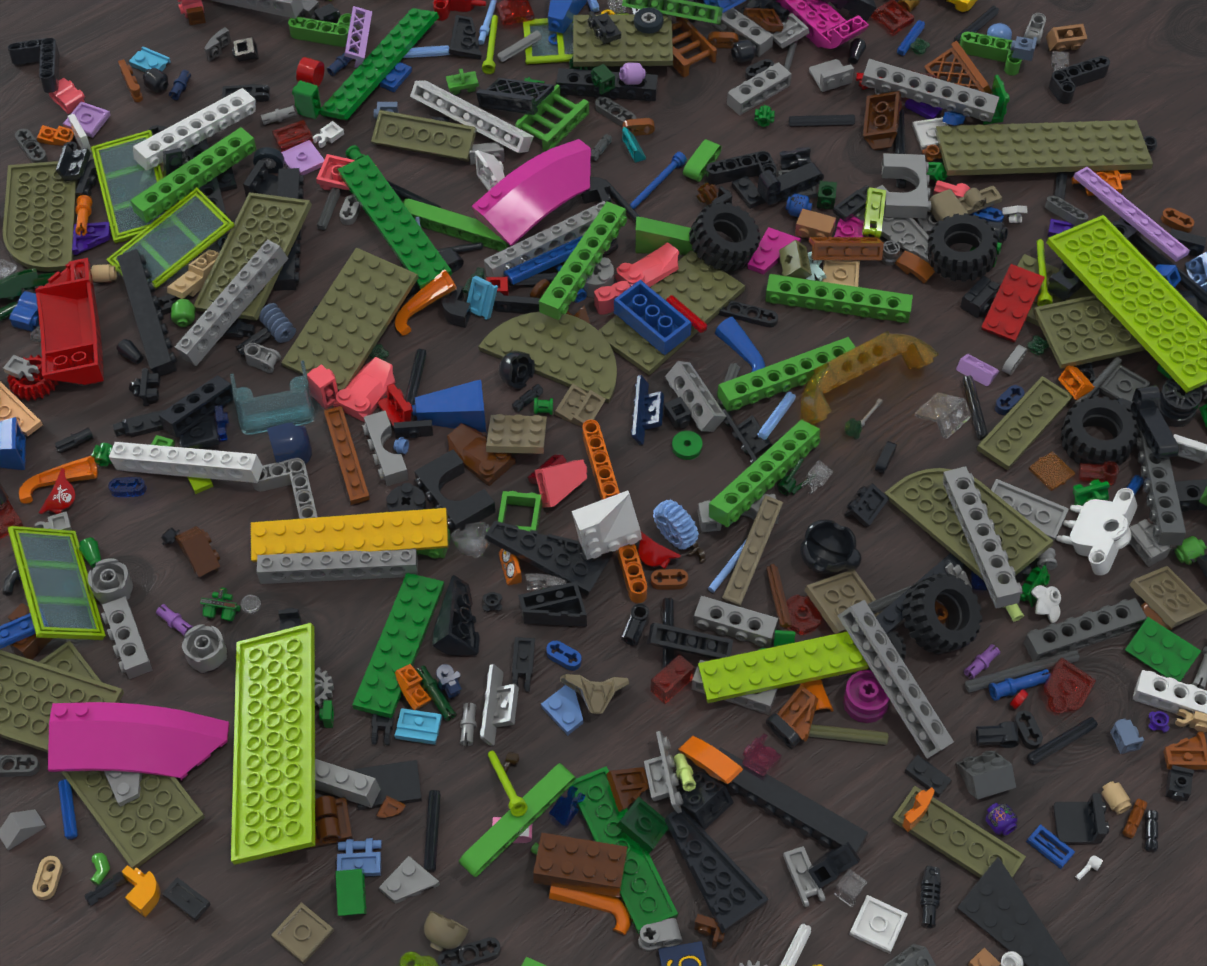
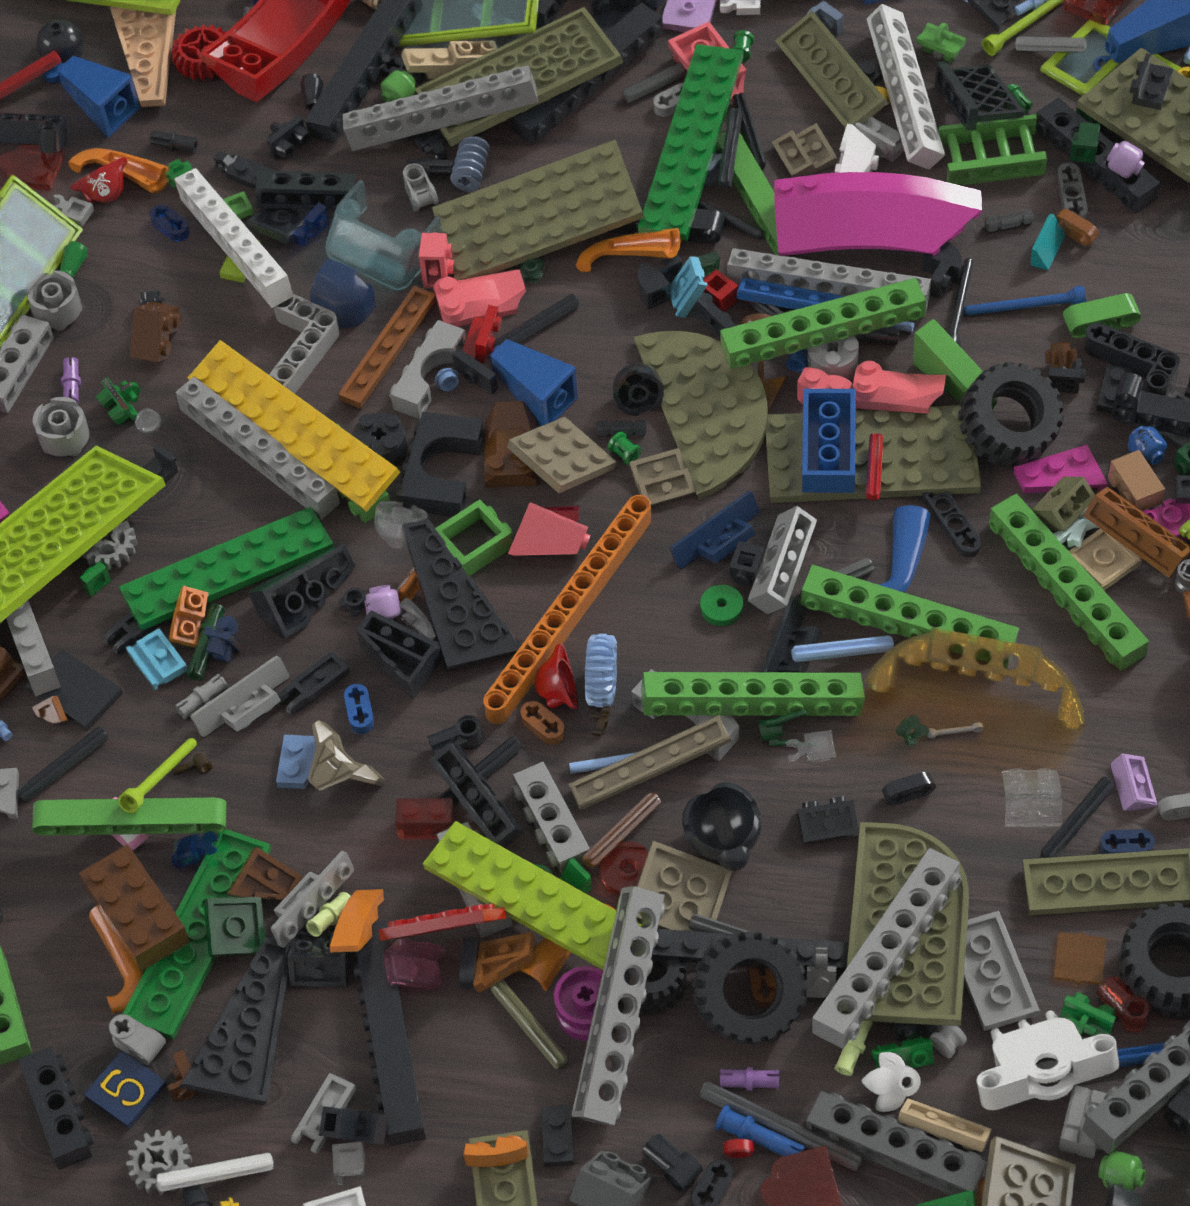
camera: 50 degrees right, 0 degrees up
(18, 367) = (192, 32): light grey plate -> none
(419, 209) = (730, 147): none -> black axle
(454, 186) = (805, 151): none -> dark tan slope
(512, 587) = (383, 601): none -> lavender head
(607, 525) = (516, 609): white slope -> none
(753, 724) = (442, 921): none -> red plate
(1093, 600) = (944, 1125): none -> tan plate

